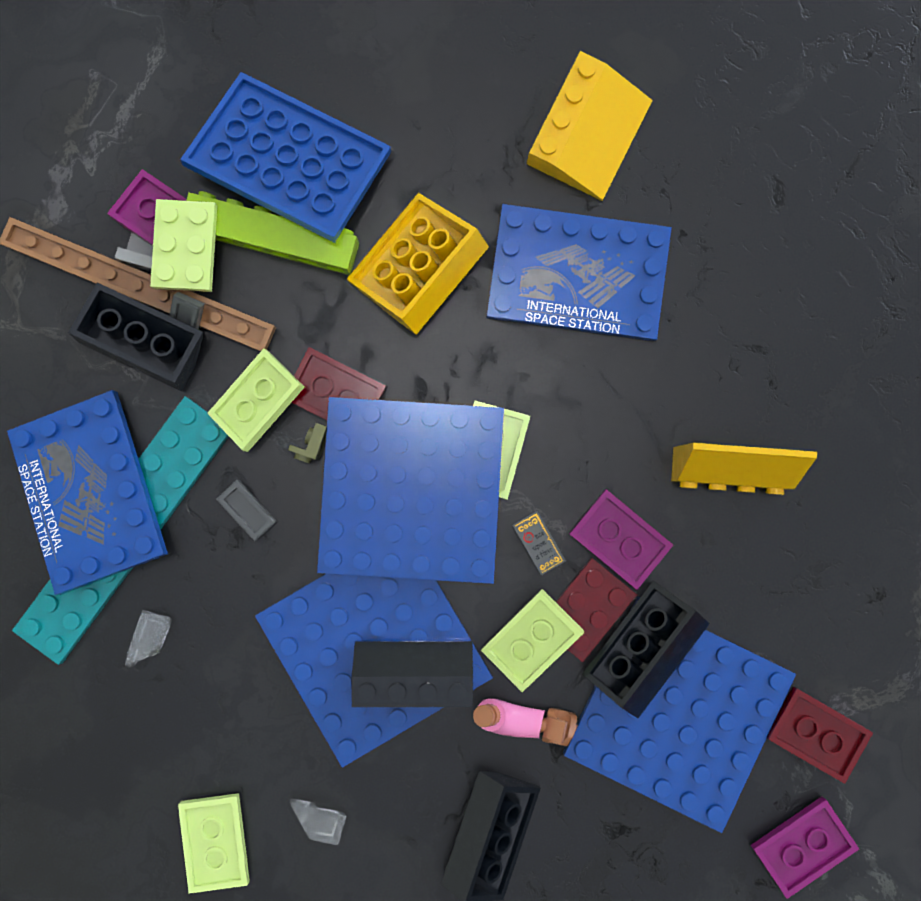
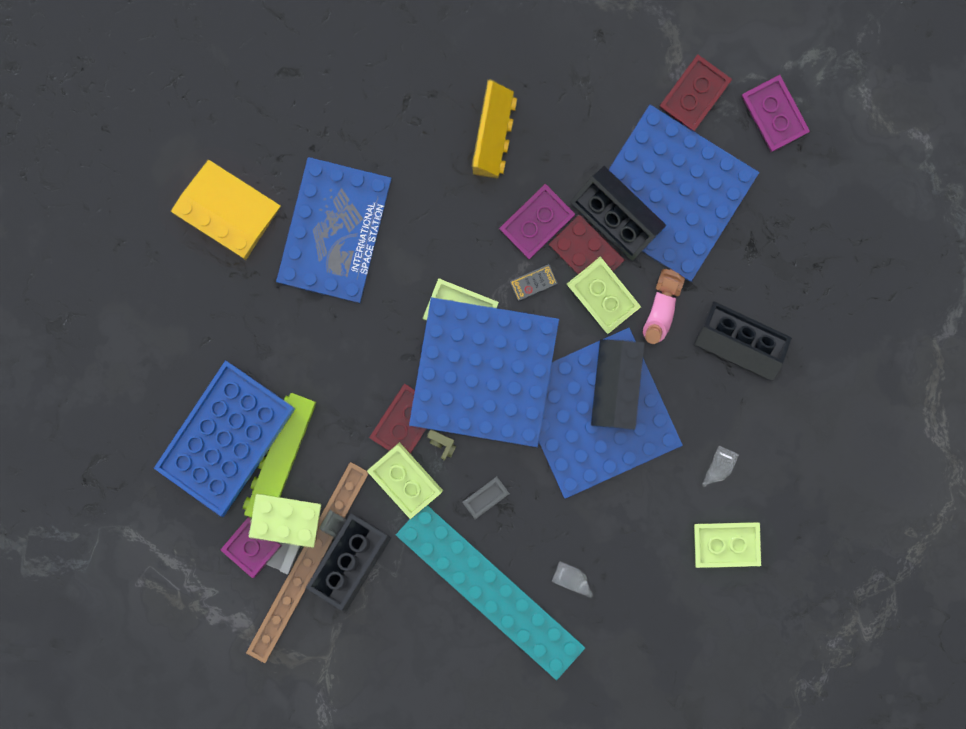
camera: 80 degrees left, 0 degrees up
(86, 492) = (459, 613): blue plate -> none
(418, 262) = (313, 350): yellow slope -> none

